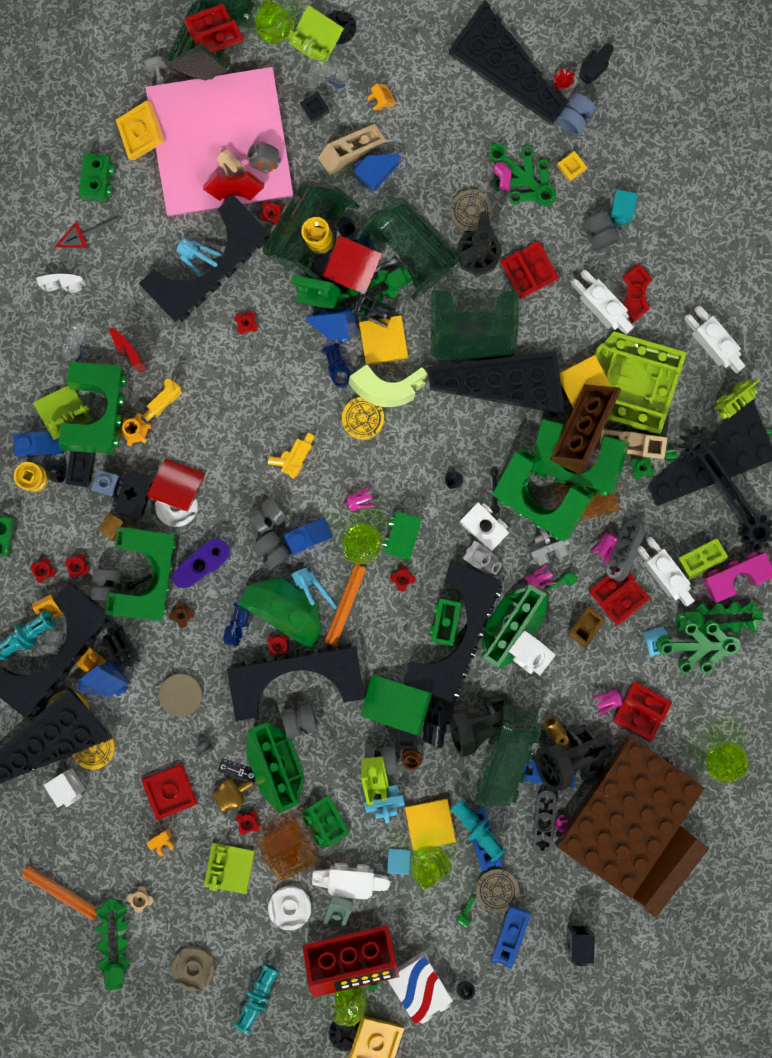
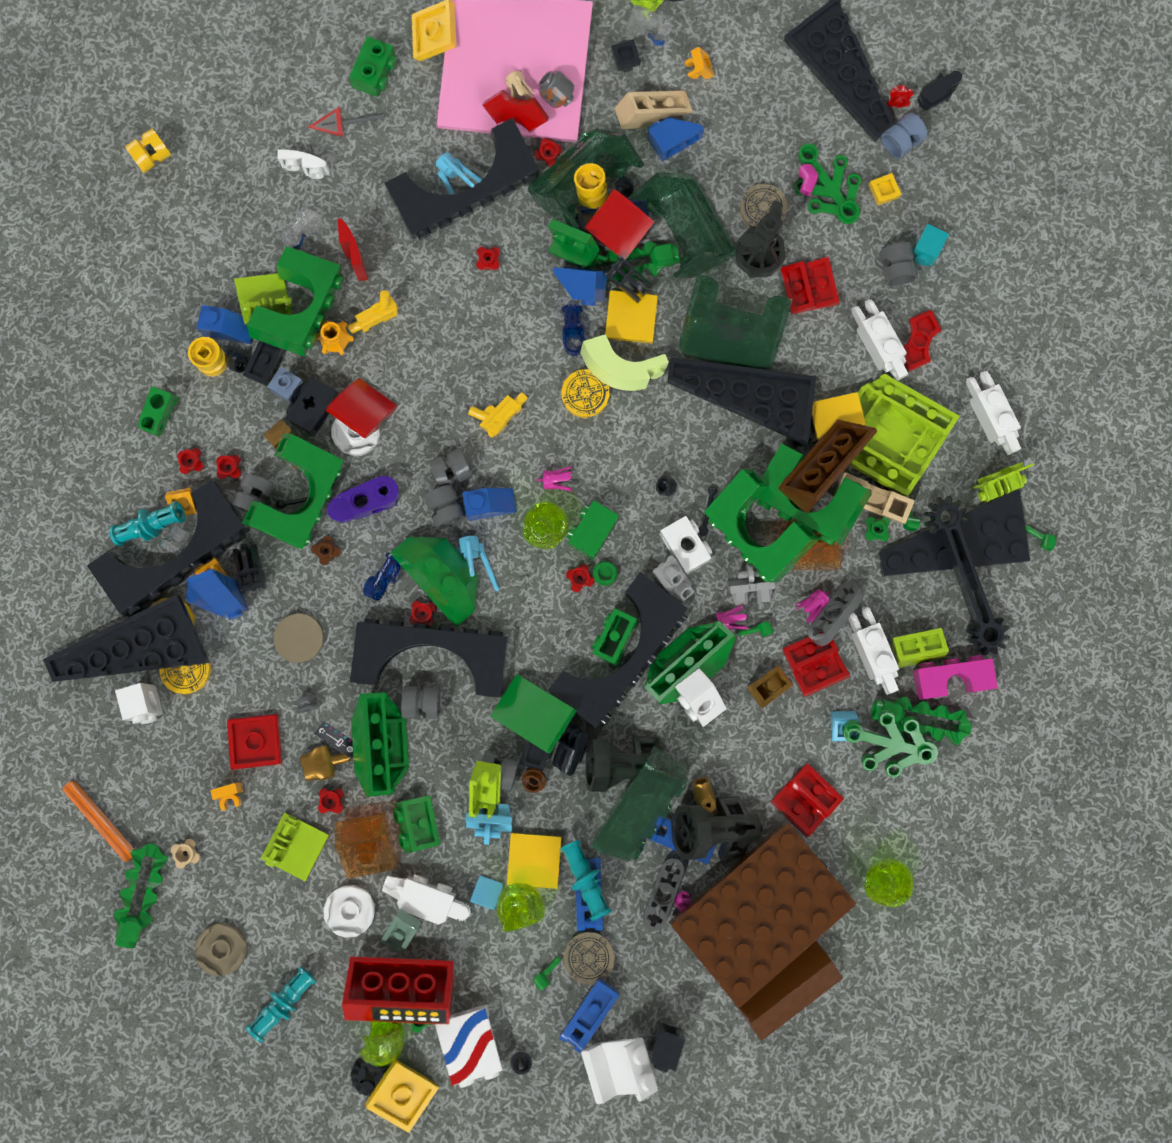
camera: 15 degrees right, 5 degrees down
(345, 605) = (508, 589): orange axle -> none
(422, 568) = (605, 573): none -> green tile
(547, 973) = (619, 1069): none -> white panel
(611, 700) = (773, 776): dark pink piece -> none

